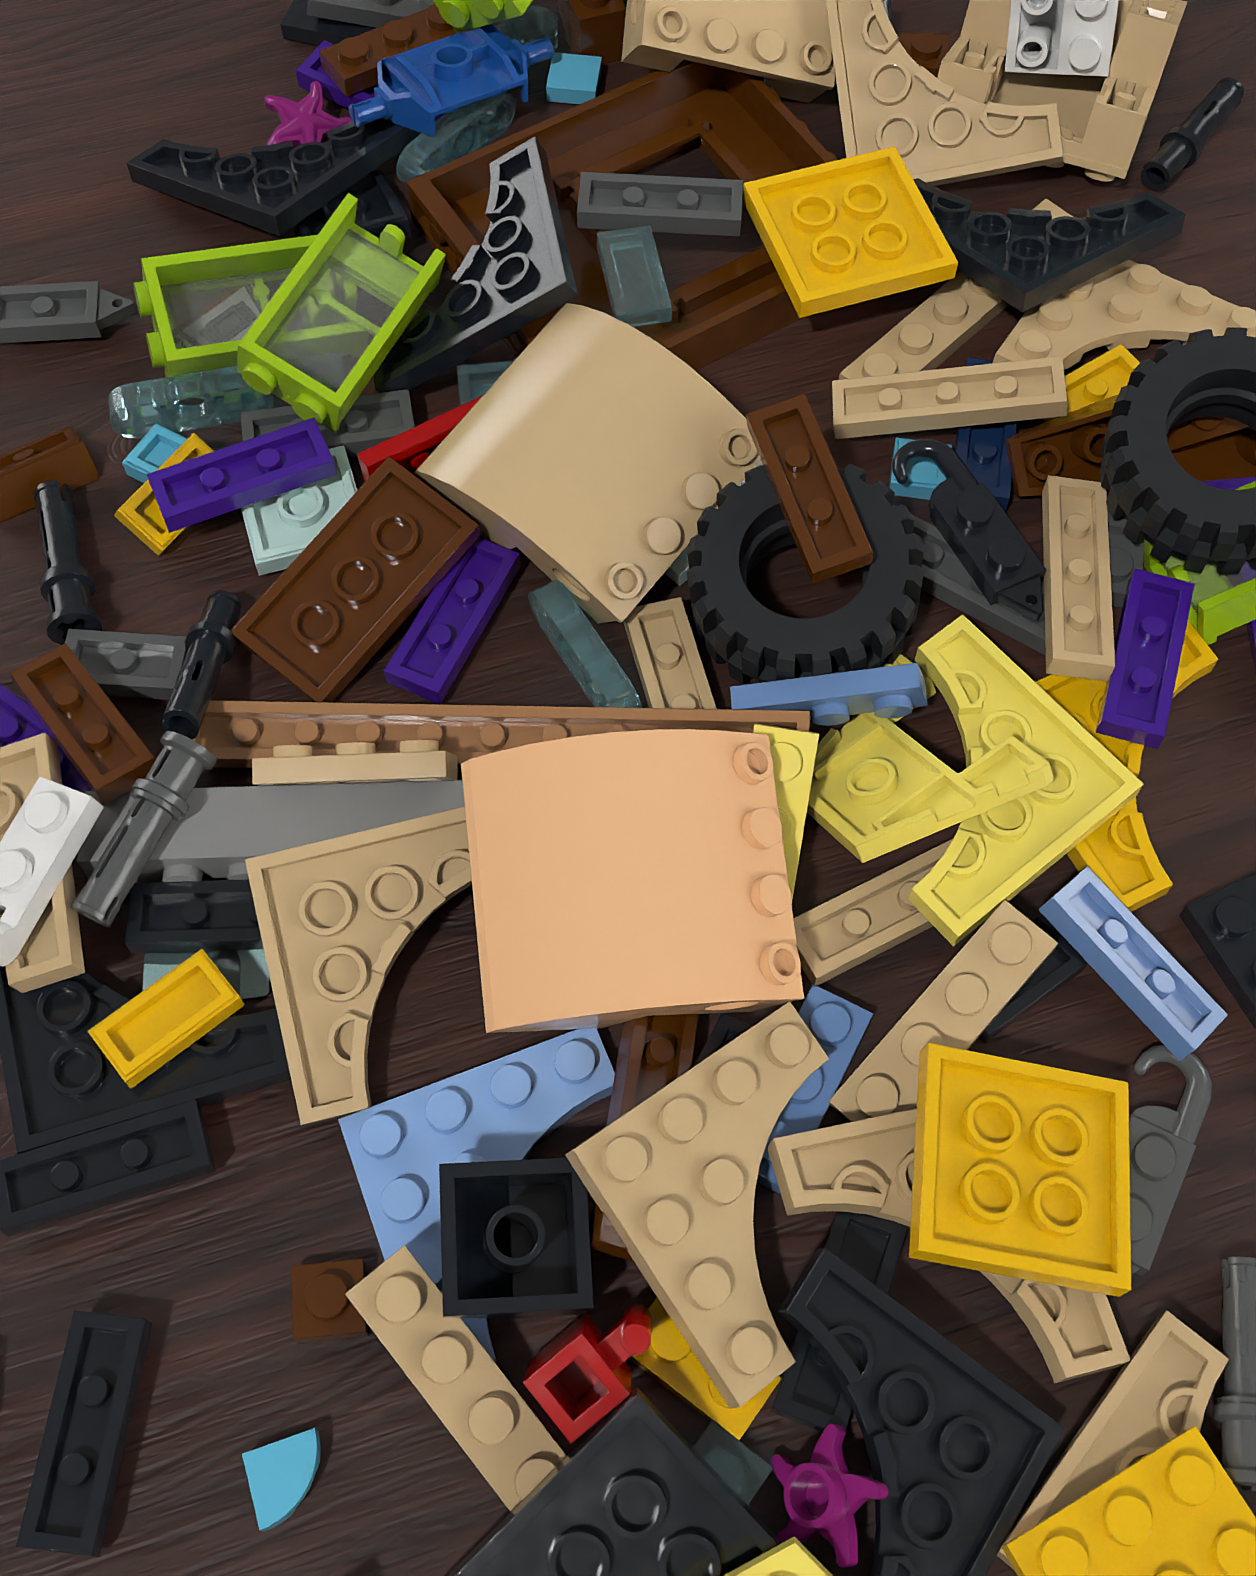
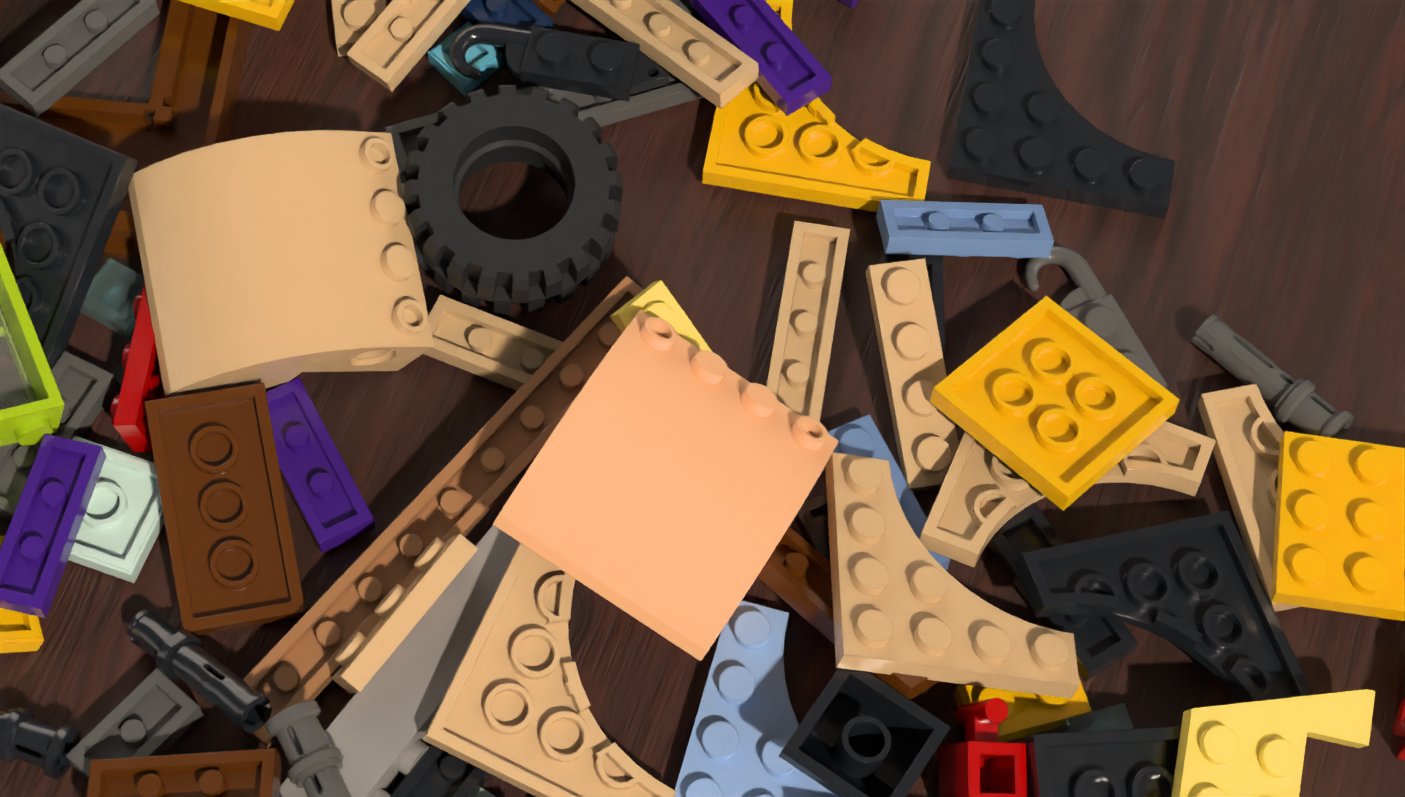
camera: 55 degrees left, 0 degrees up
(581, 648) = (423, 394): clear light blue beam -> none
(634, 276) = (126, 113): clear light blue tile -> none
(809, 489) = (471, 133): reddish brown plate -> none
(825, 1496) = (1166, 681): magenta animal -> none
(835, 696) = (621, 255): medium blue plate -> none
(886, 790) = (721, 273): light yellow wing -> none
(1017, 841) = (790, 180): light yellow plate -> none

